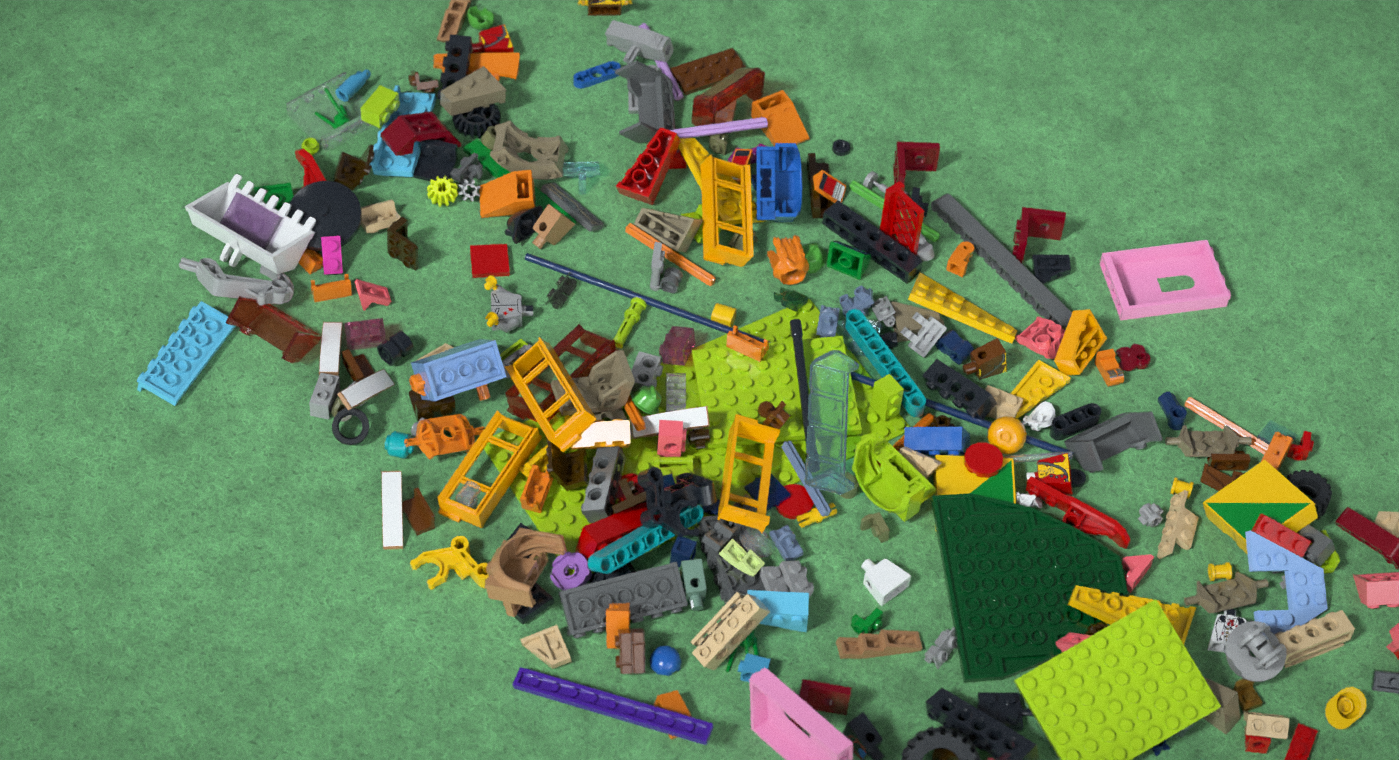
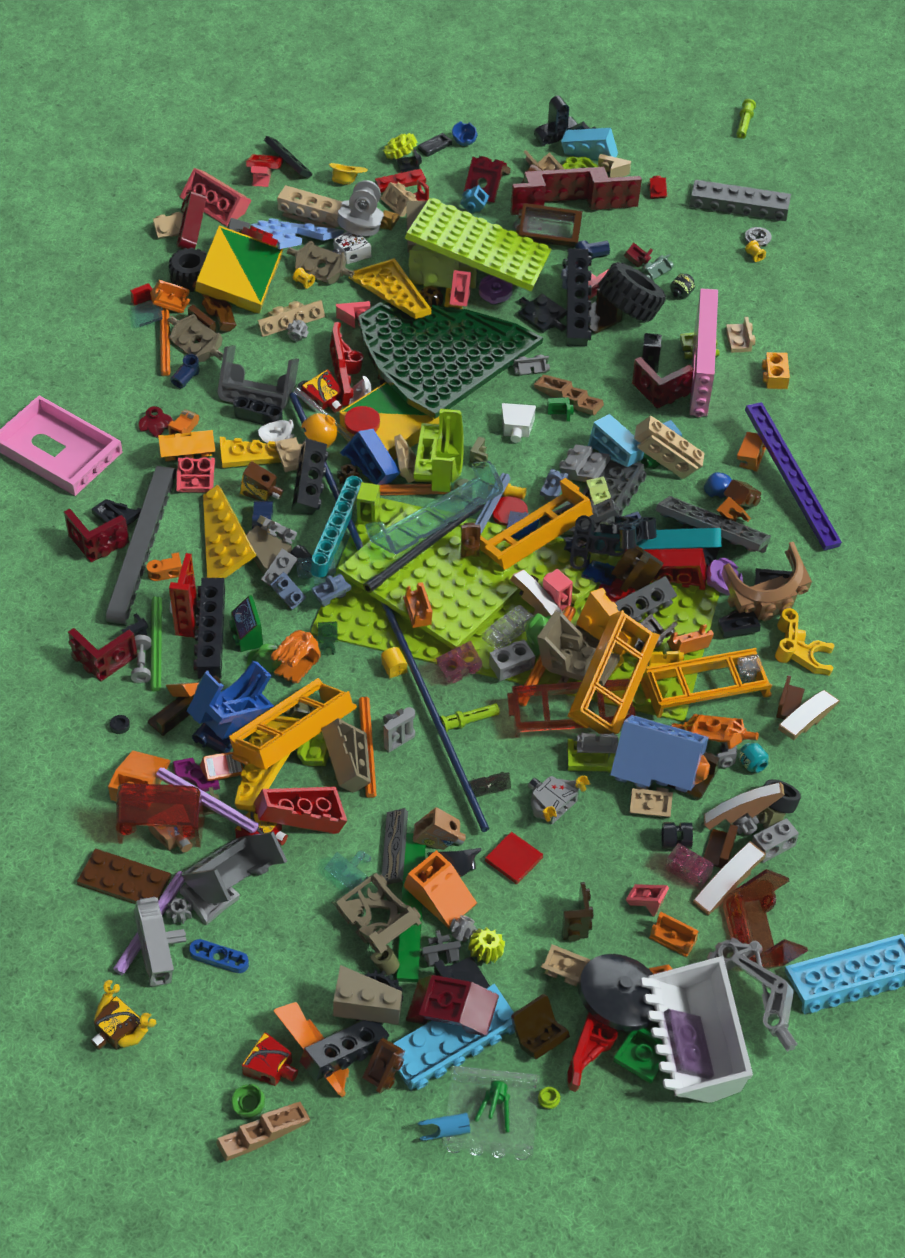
camera: 130 degrees left, 0 degrees up
(332, 255) = (646, 957): dark pink plate -> none
(380, 106) = (459, 1058): lime brick -> none
(548, 647) = (788, 535): tan wing -> none
(693, 583) = (647, 501): sand green torso -> none
(1179, 486) = (252, 330): yellow bush -> none

